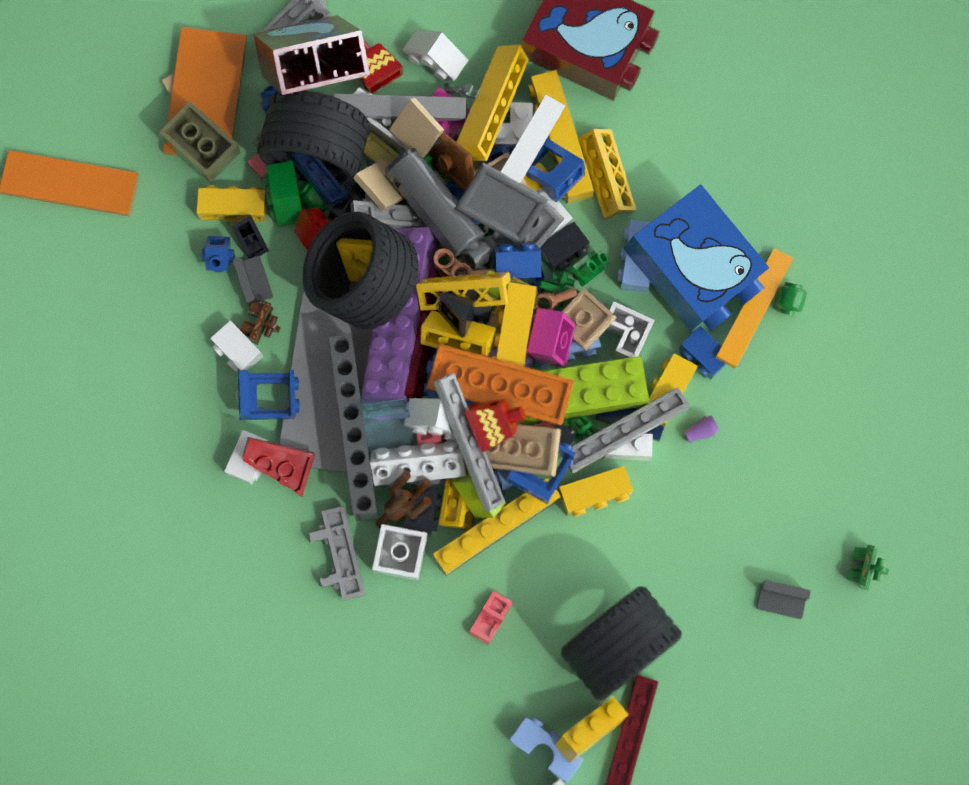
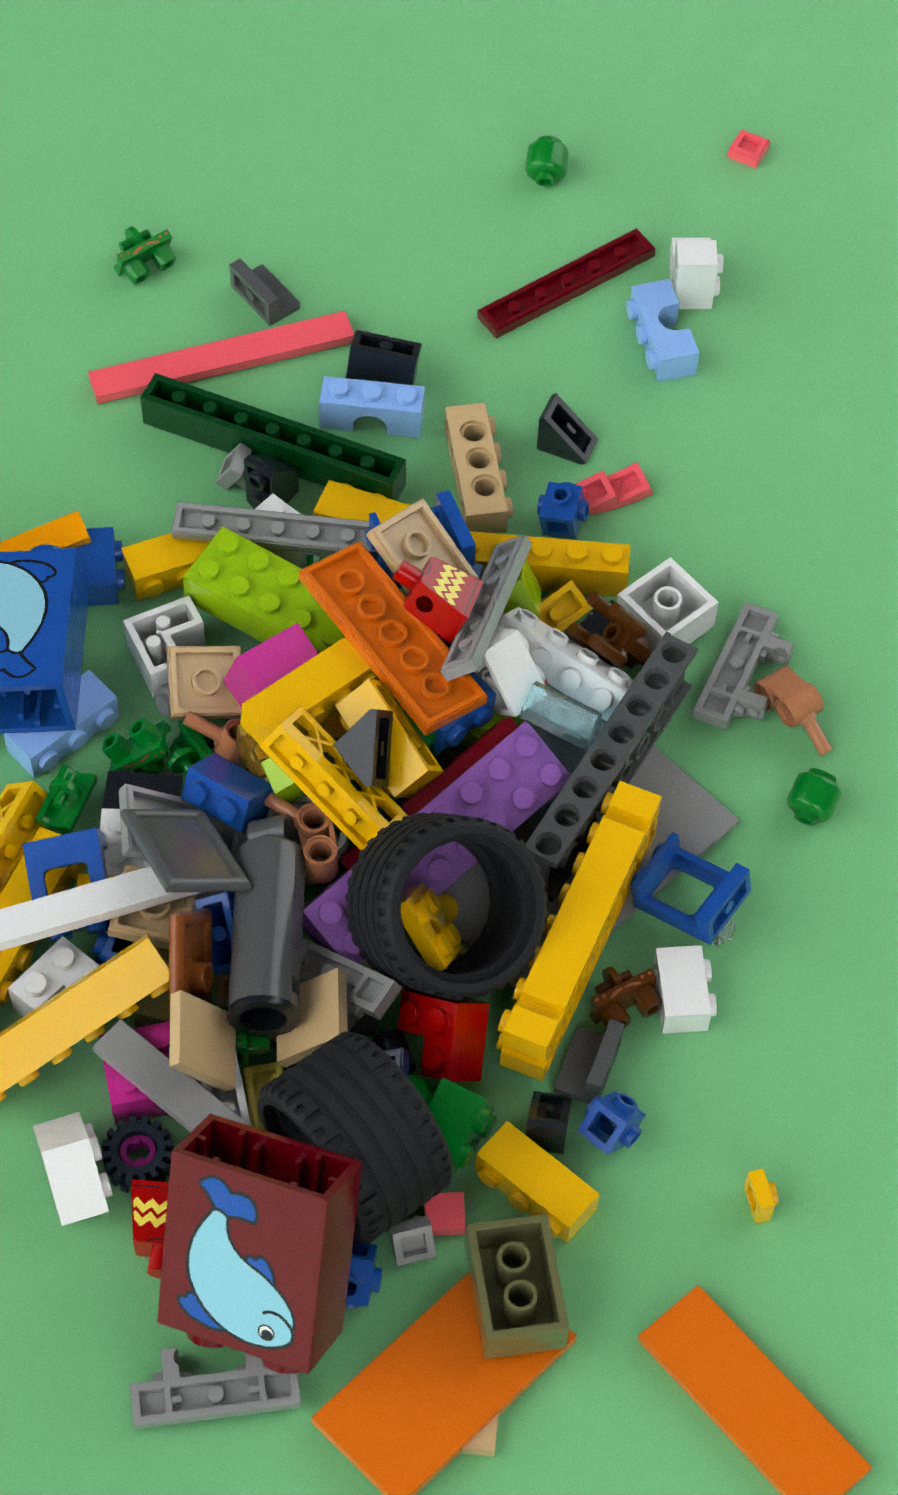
camera: 140 degrees left, 20 degrees down
(127, 274) = (760, 1195): none -> yellow plate
(237, 467) = (774, 847): white brick -> none
(248, 503) = (813, 796): none -> green head
(281, 462) = (737, 800): red wing -> none
(297, 549) = (795, 703): none -> nougat beam
(299, 328) = (578, 931): none -> yellow brick
(415, 75) = (133, 1137): none -> black bush
(466, 90) = (81, 1059): sand green piece -> none
(502, 575) = (562, 510): none -> blue brick
(540, 631) = (564, 432): none -> black slope
(548, 540) = (476, 468): none -> tan brick
(591, 729) = (598, 300): yellow brick -> none
(597, 217) = (66, 800): none -> green hips
(621, 643) = (494, 286): black tyre -> none
(655, 562) = (393, 403): none -> light blue arch
(663, 468) = (269, 475): none -> black slope
(676, 592) = (383, 359): none -> black brick
(684, 495) = (226, 423): none -> dark green brick
(692, 467) = (233, 468): none -> light grey tile
(704, 428) = (177, 490): medium lavender cone -> none
(764, 537) = (223, 356): none -> coral tile

